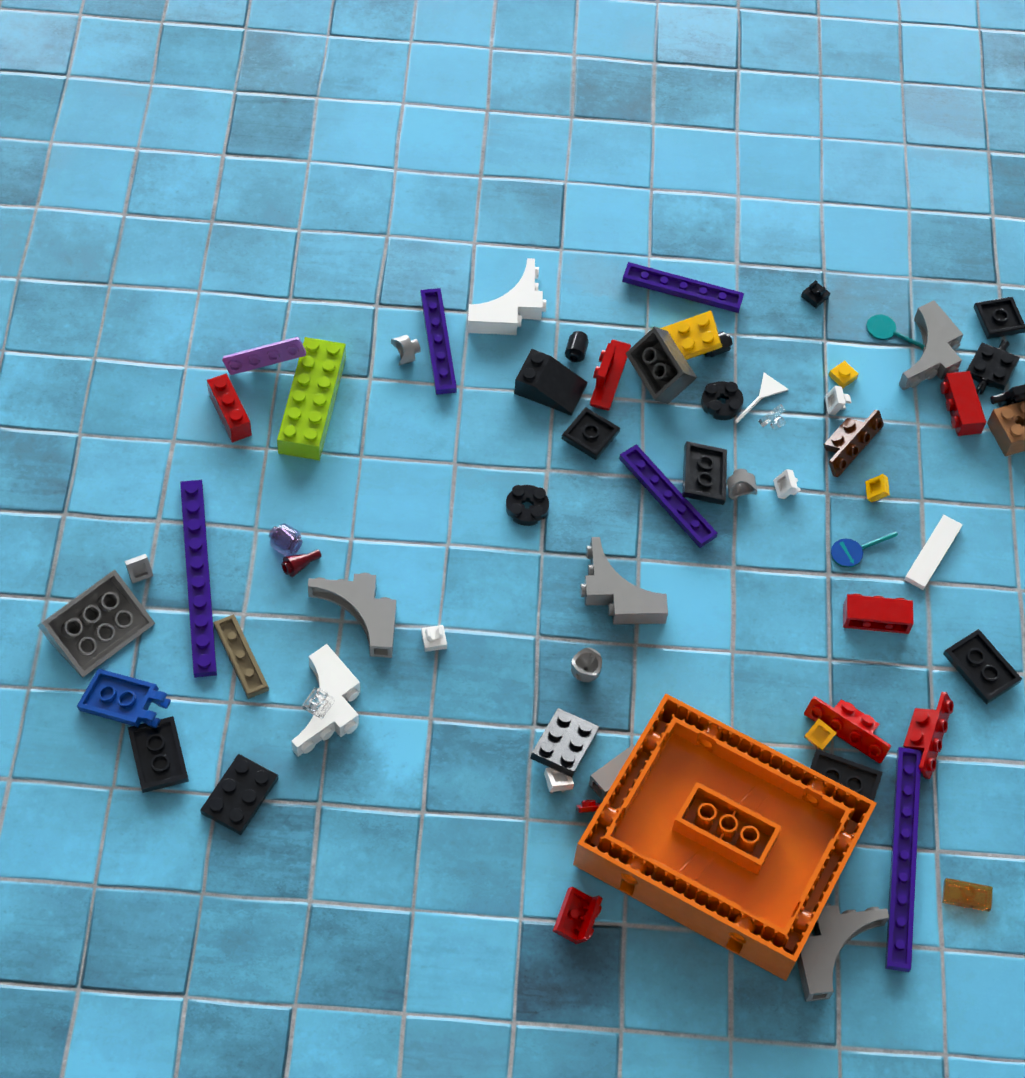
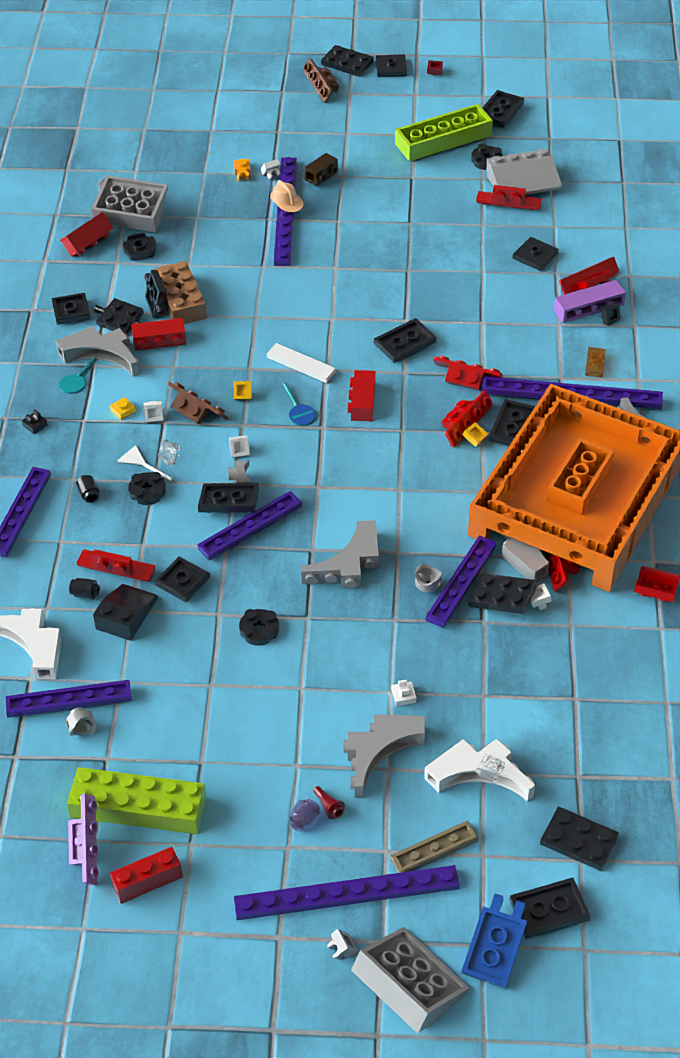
camera: 85 degrees left, 10 degrees down
(585, 702) = (461, 581): none -> dark purple plate
(661, 365) = (116, 520): dark grey brick -> none
(695, 335) = (83, 505): yellow plate -> none

